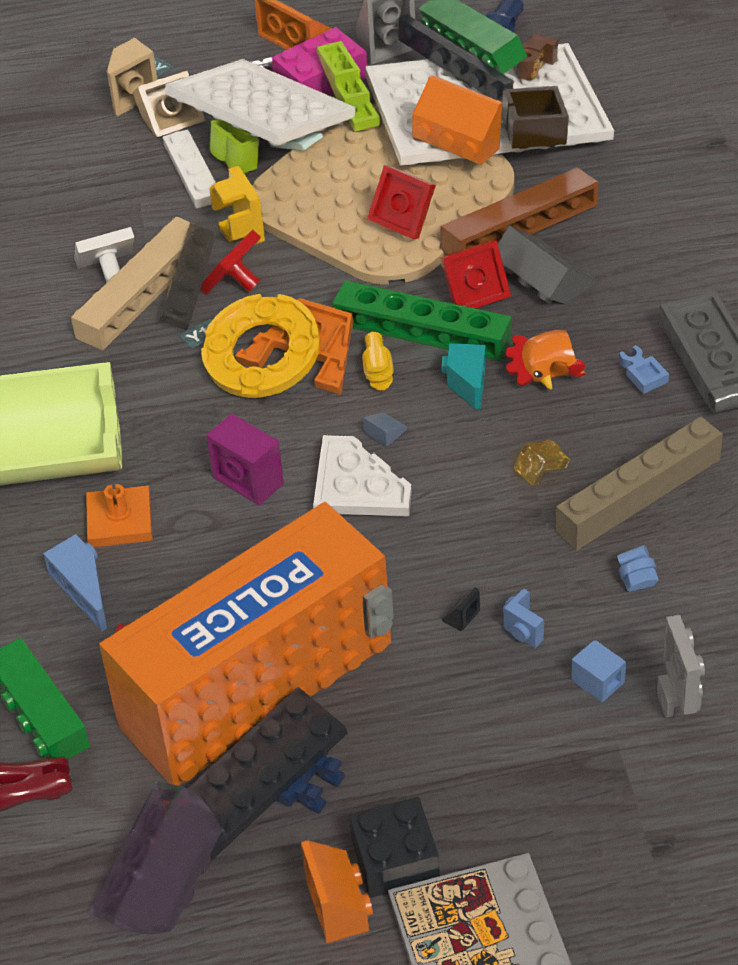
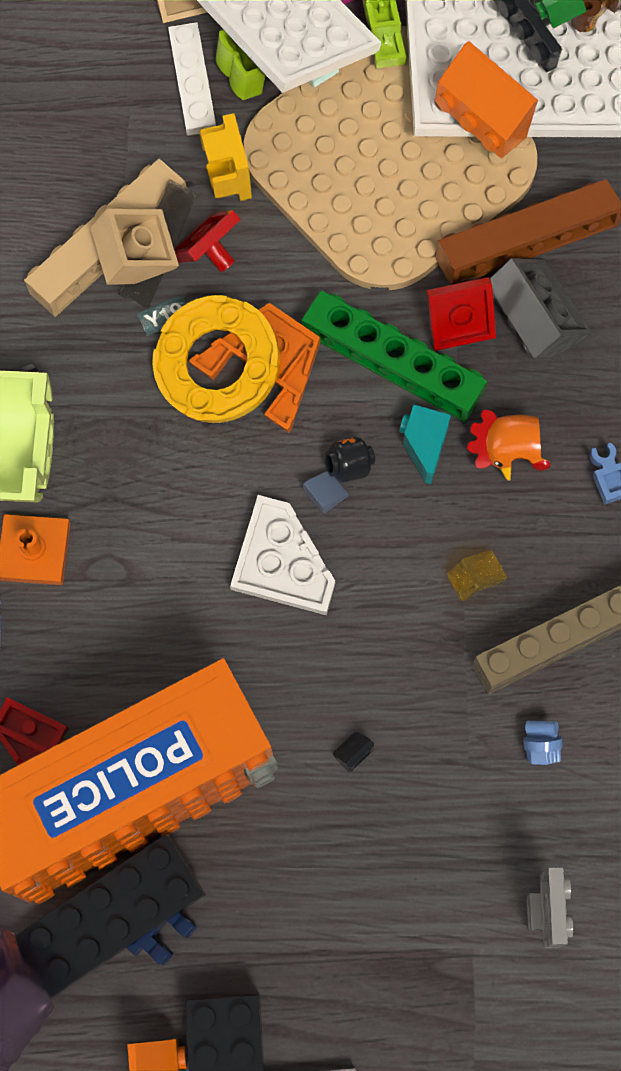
camera: 10 degrees right, 25 degrees up
(105, 250) = (76, 191): white tile -> none
(167, 270) = (133, 245): none -> tan slope
(245, 459) = (170, 516): magenta container -> none
(377, 362) = (335, 402): yellow arm -> none
(401, 202) = (402, 197): red tile -> none
(401, 397) = (349, 459): none -> black head
(521, 621) = (410, 789): medium blue bracket -> none
(535, 117) = (574, 108): dark brown piece -> none
(598, 671) = (473, 864): medium blue panel -> none

